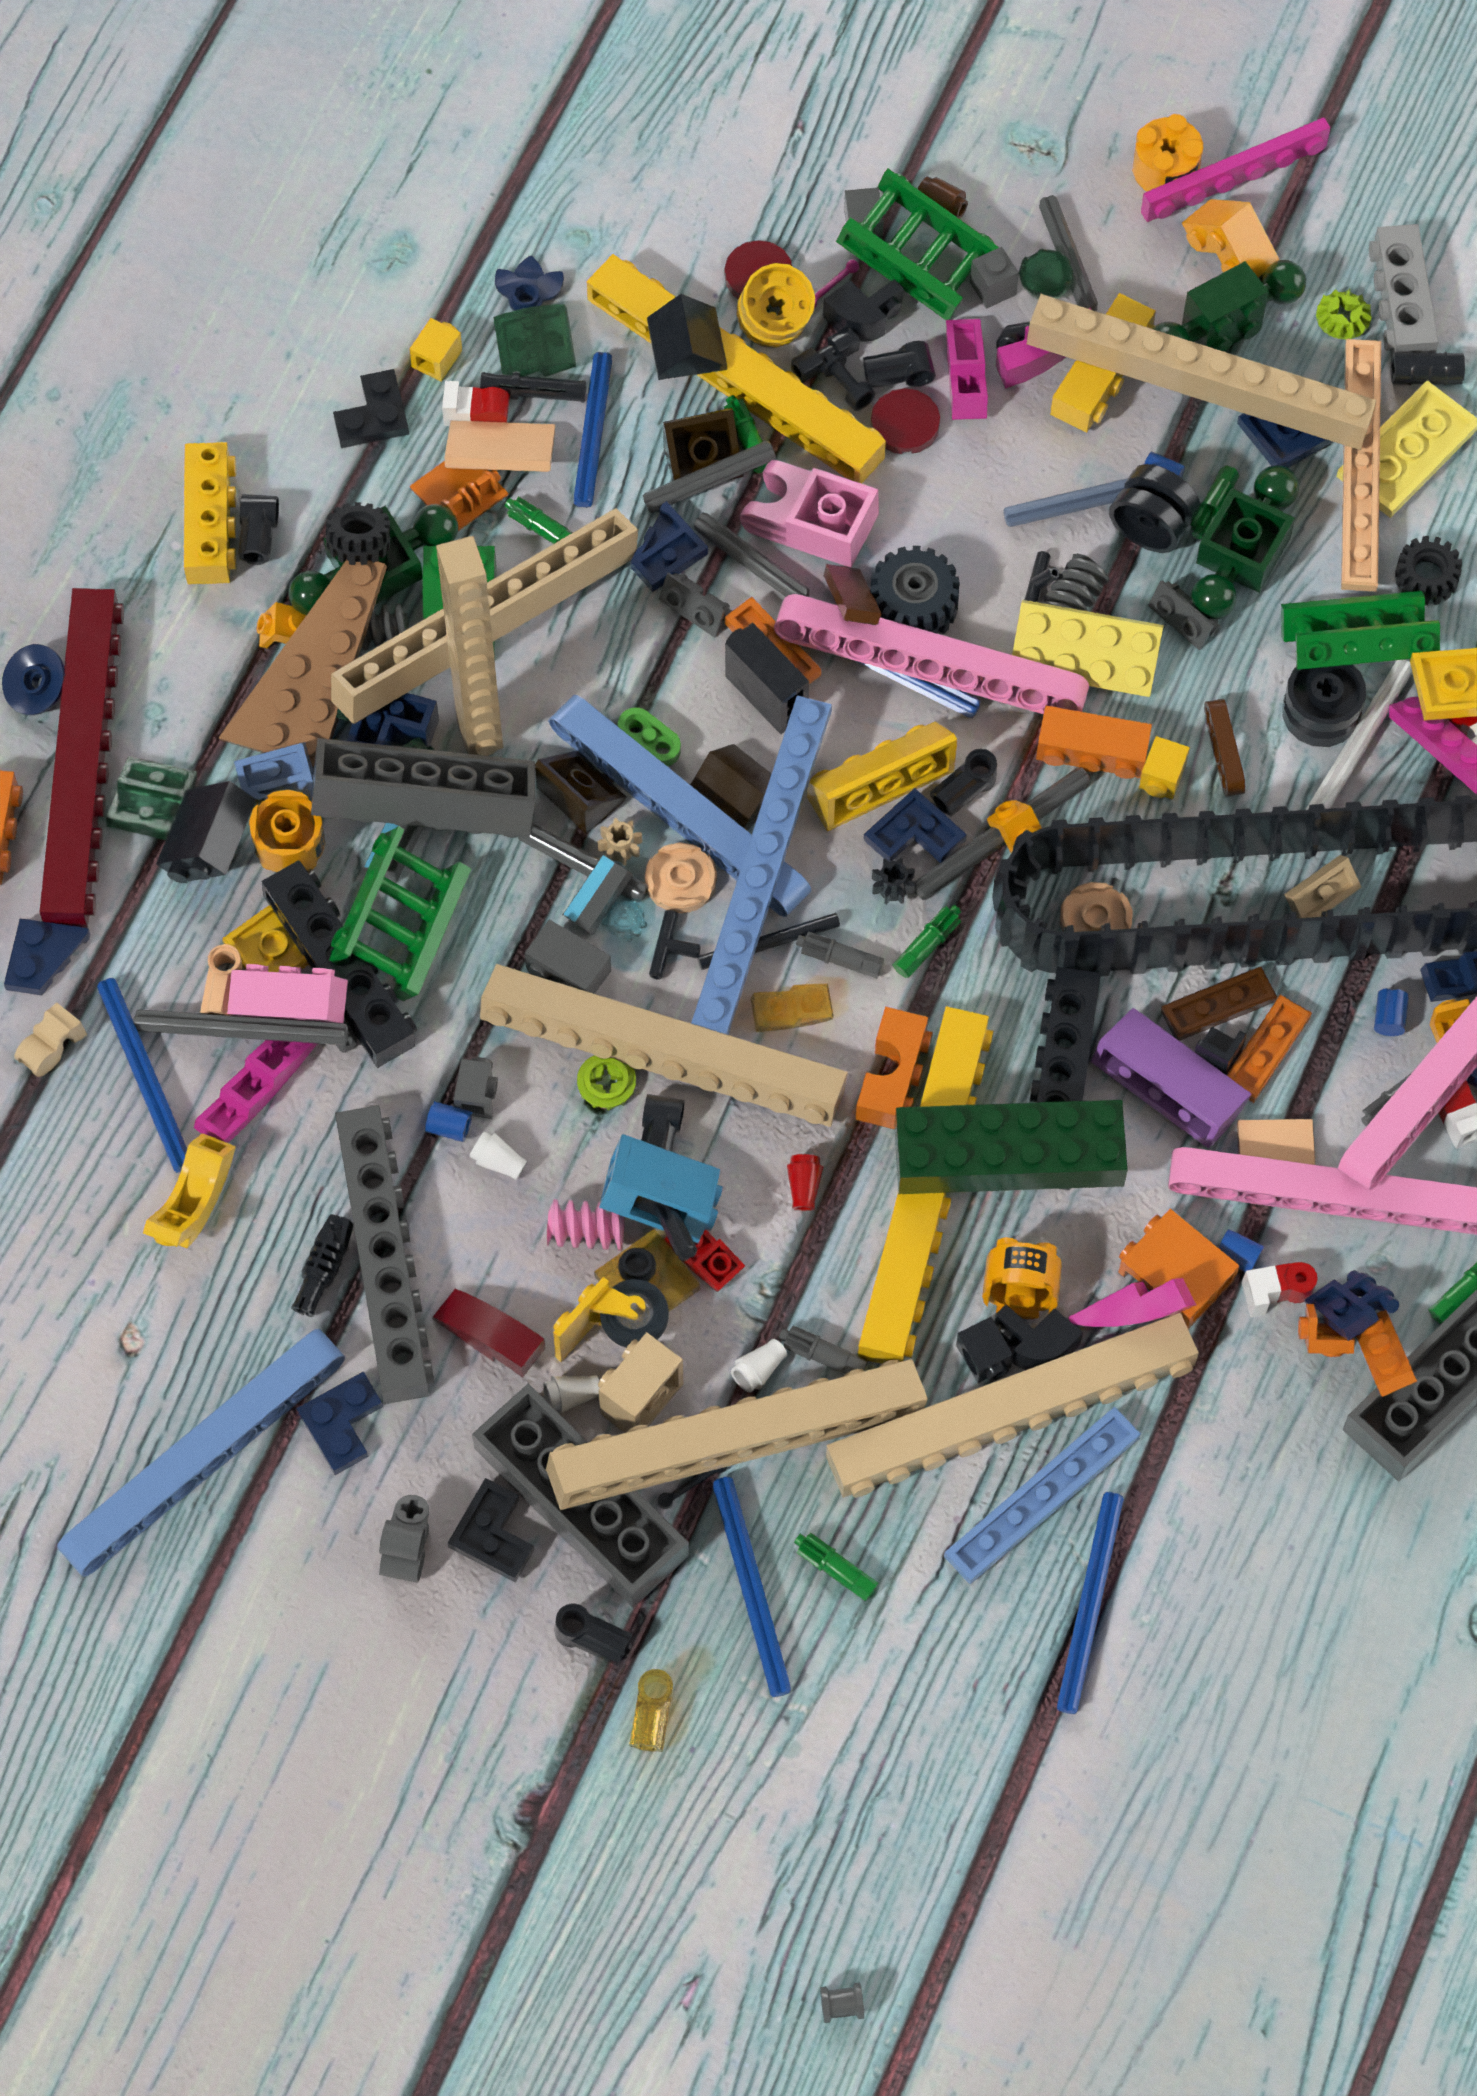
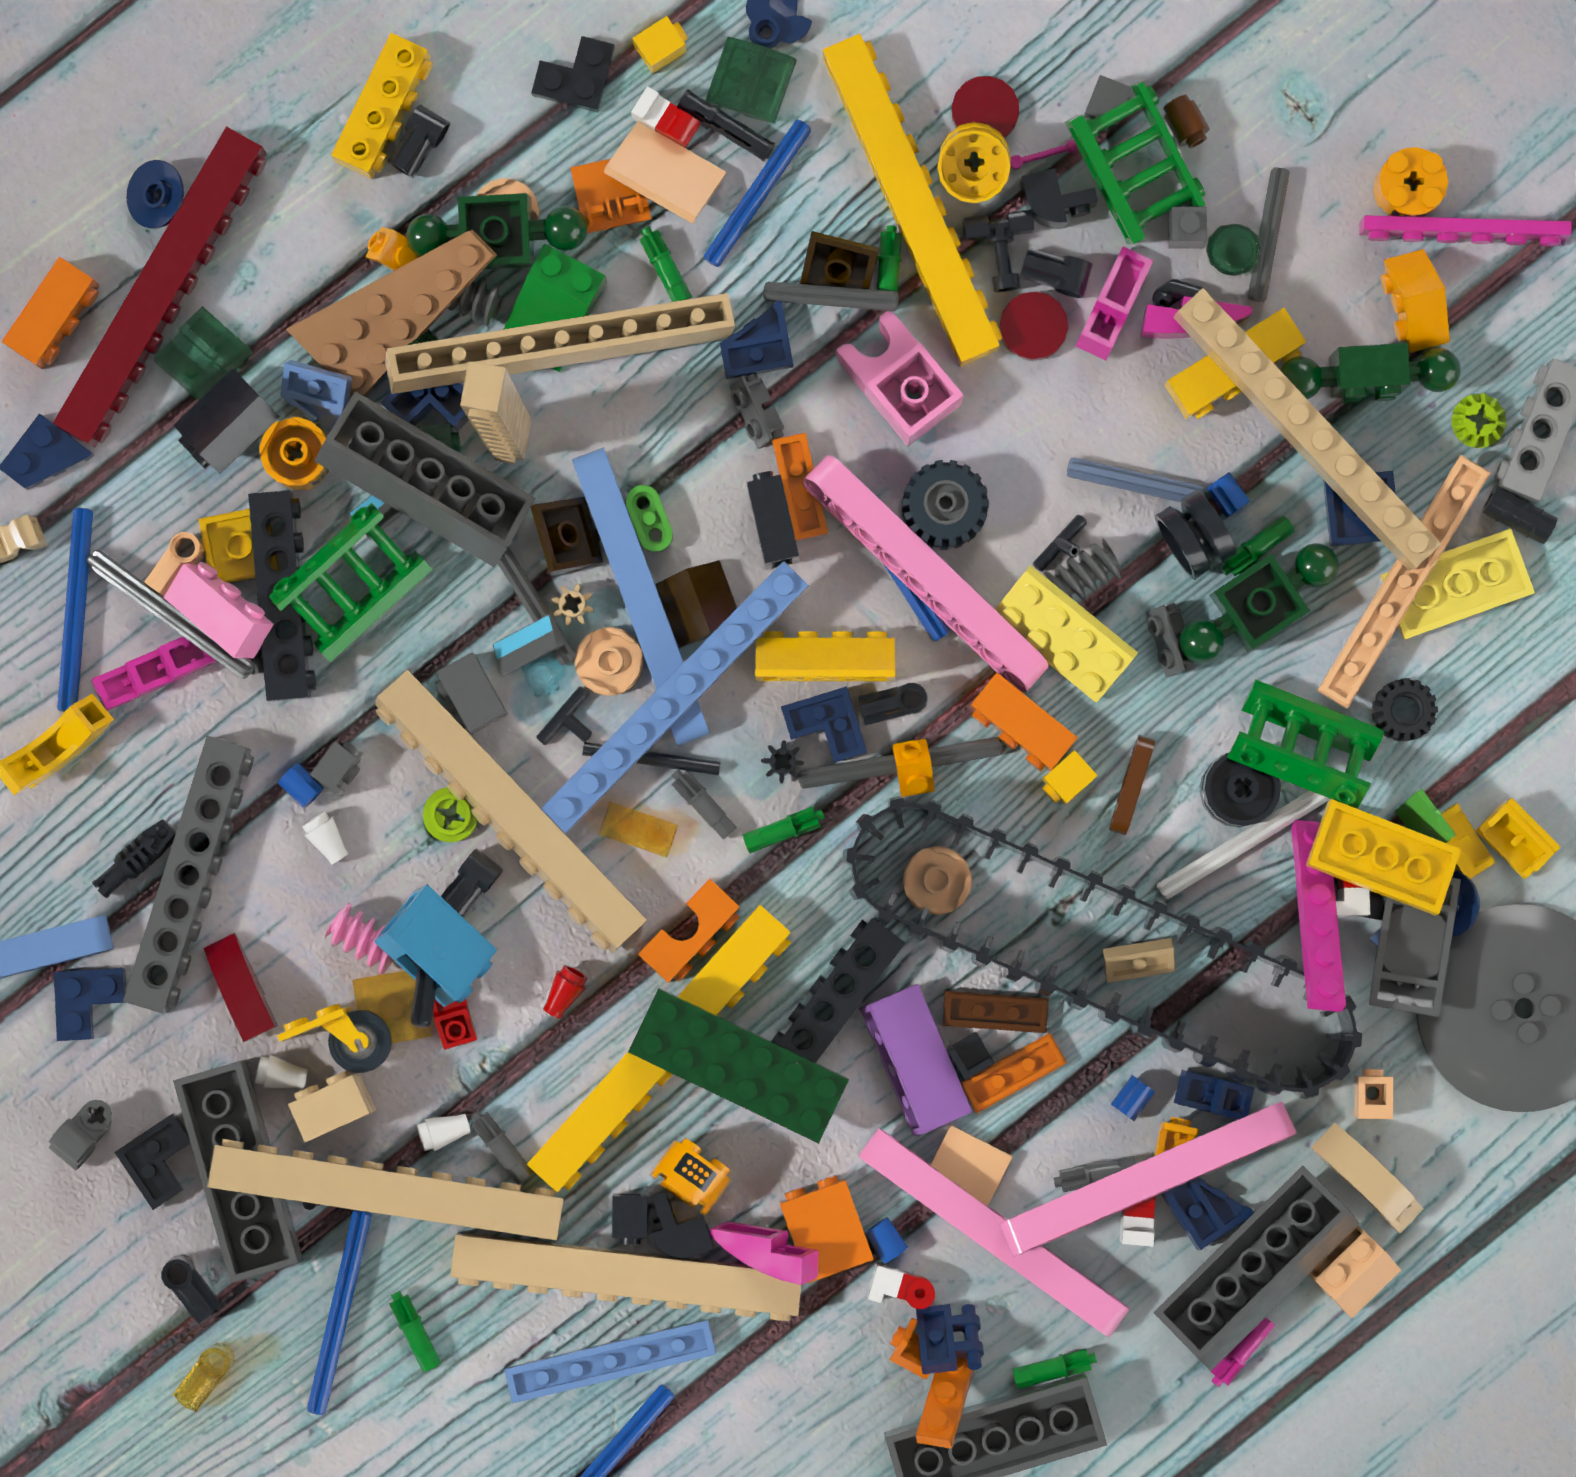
camera: 30 degrees right, 20 degrees up
(362, 547) = (482, 198): black tyre -> none
(637, 1264) = (386, 997): black plate -> none
(686, 338) = (877, 157): black slope -> none
(749, 556) = (827, 392): dark grey axle -> none
(852, 594) = (887, 482): reddish brown tile -> none

